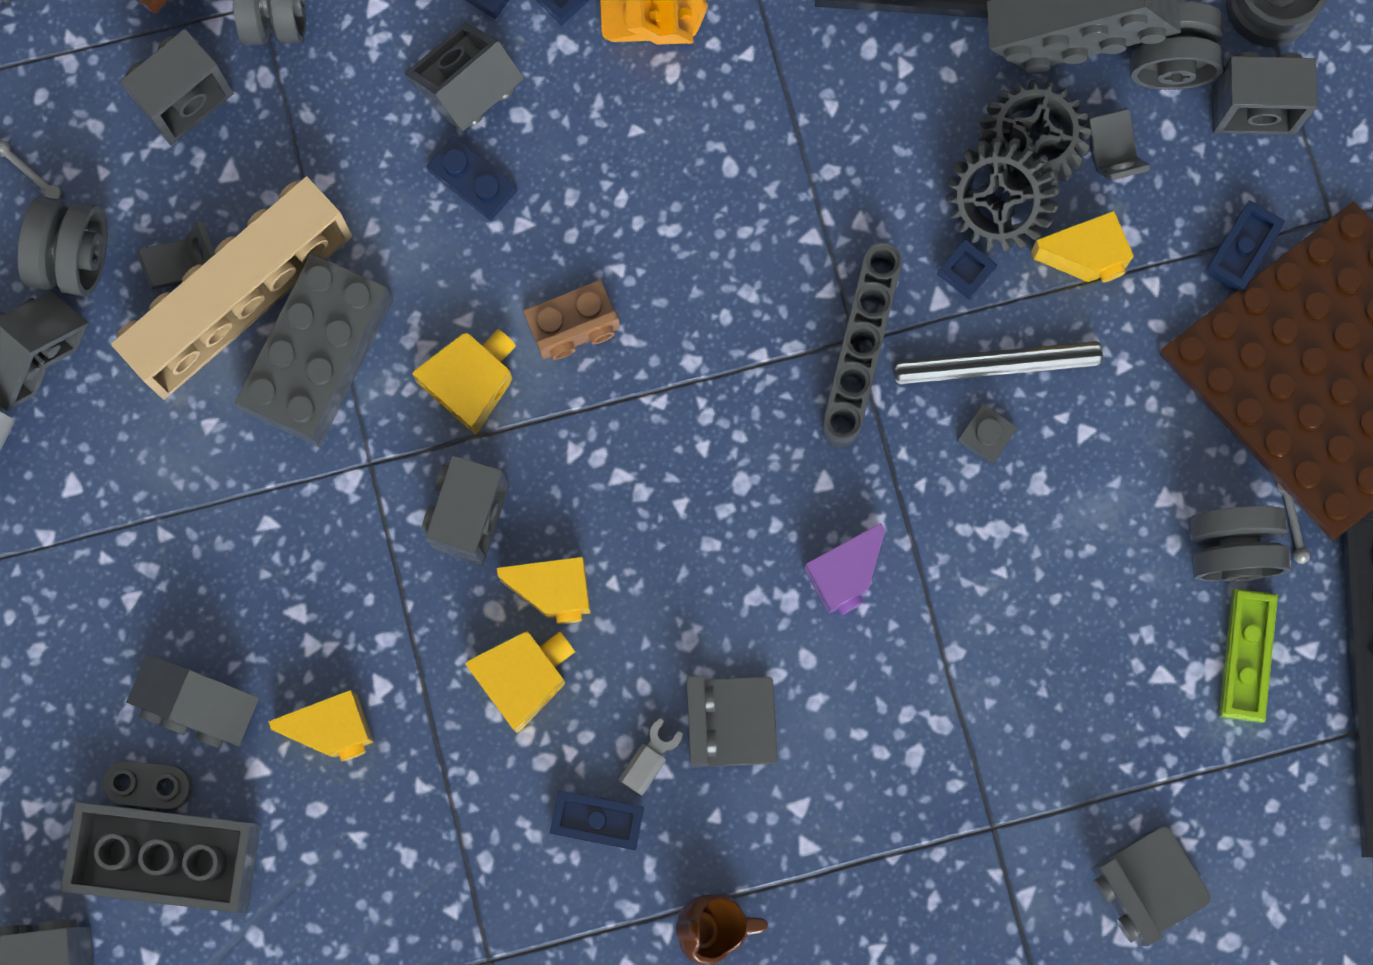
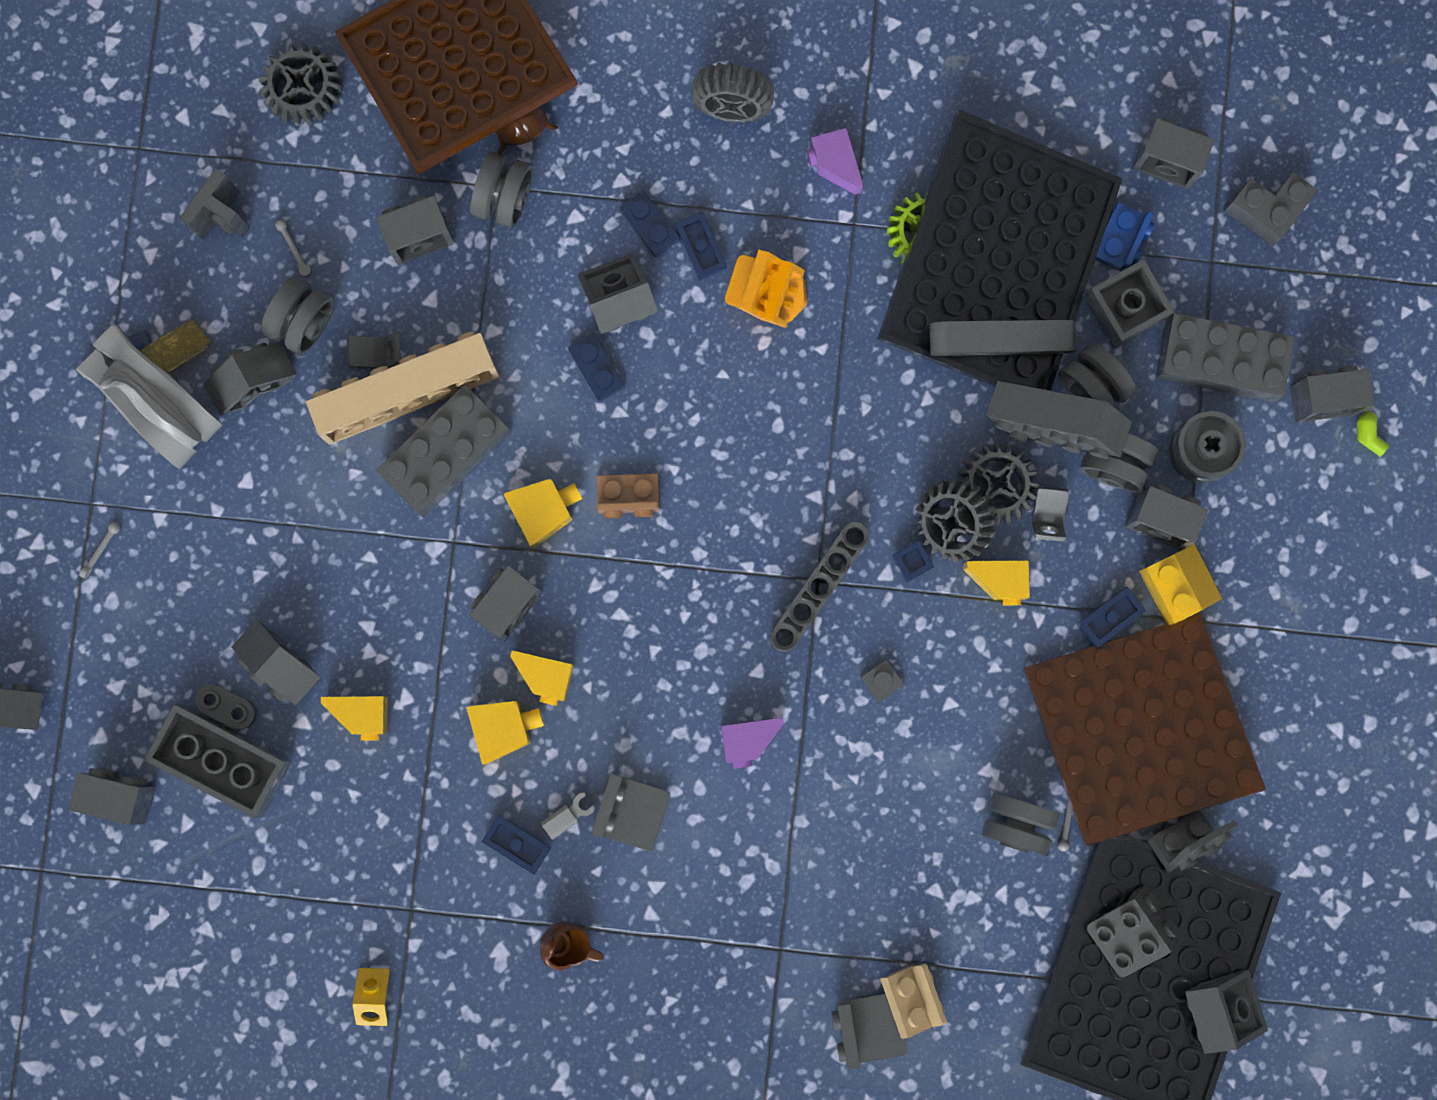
camera: 15 degrees right, 5 degrees up
(998, 362) = (909, 634): axle -> none
(1193, 825) = (913, 1000): none -> tan bracket
(1248, 655) = (999, 899): lime tile -> none
(1312, 176) = (1180, 585): none -> yellow slope

